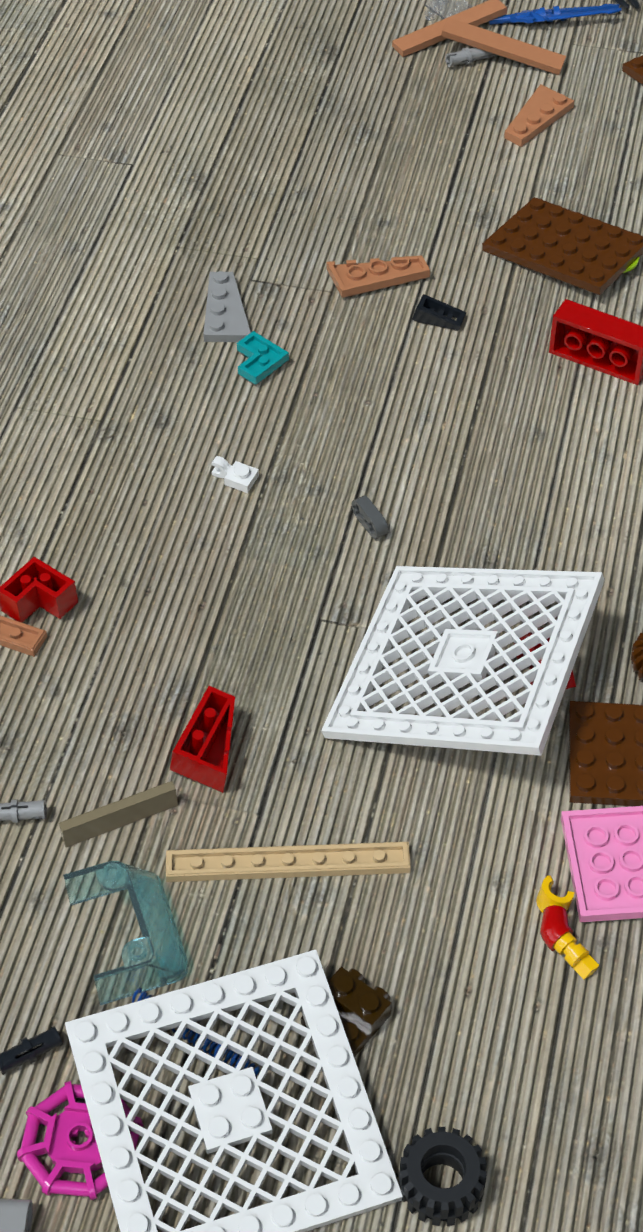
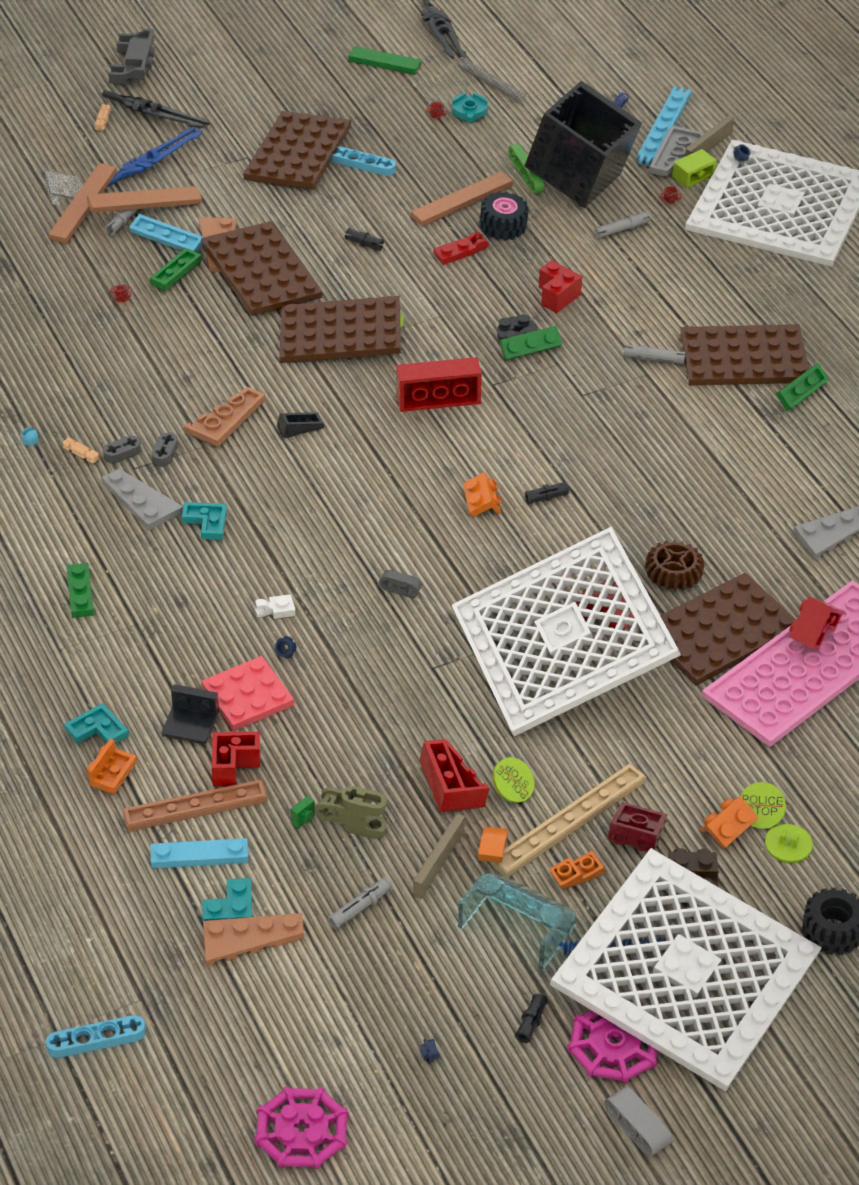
camera: 40 degrees left, 5 degrees down
(44, 686) = (302, 812): none -> green plate
(50, 533) = (191, 714): none -> black bracket
(83, 715) = (354, 810): none -> olive piece
(86, 363) = (80, 590): none -> green plate
(124, 541) = (248, 693): none -> coral plate
(180, 834) = (492, 844): none -> orange slope
(191, 206) = (30, 436): none -> medium azure hinge
(199, 516) = (280, 647): none -> dark blue plate
(220, 239) = (81, 450): none -> light nougat axle
(241, 924) = (572, 873): none -> orange slope
(255, 256) = (122, 449): none -> dark grey beam
(268, 782) = (513, 780): none -> lime piece
(292, 275) = (160, 449): none -> dark grey beam
(341, 916) = (637, 827): none -> dark red plate
(401, 119) = (121, 292): none -> clear red plate
(445, 977) = (730, 821): none -> orange bracket
(470, 120) = (175, 269): none -> green plate
(494, 87) = (165, 233): none -> medium azure plate
(494, 1047) = (788, 843): none -> lime piece
(498, 983) = (766, 803): none -> lime piece
(542, 475) = (482, 494): none -> orange bracket
(549, 154) = (261, 268): none -> reddish brown plate
(556, 929) = (762, 756): yellow piece -> none
(613, 508) = (546, 492): none -> black pin

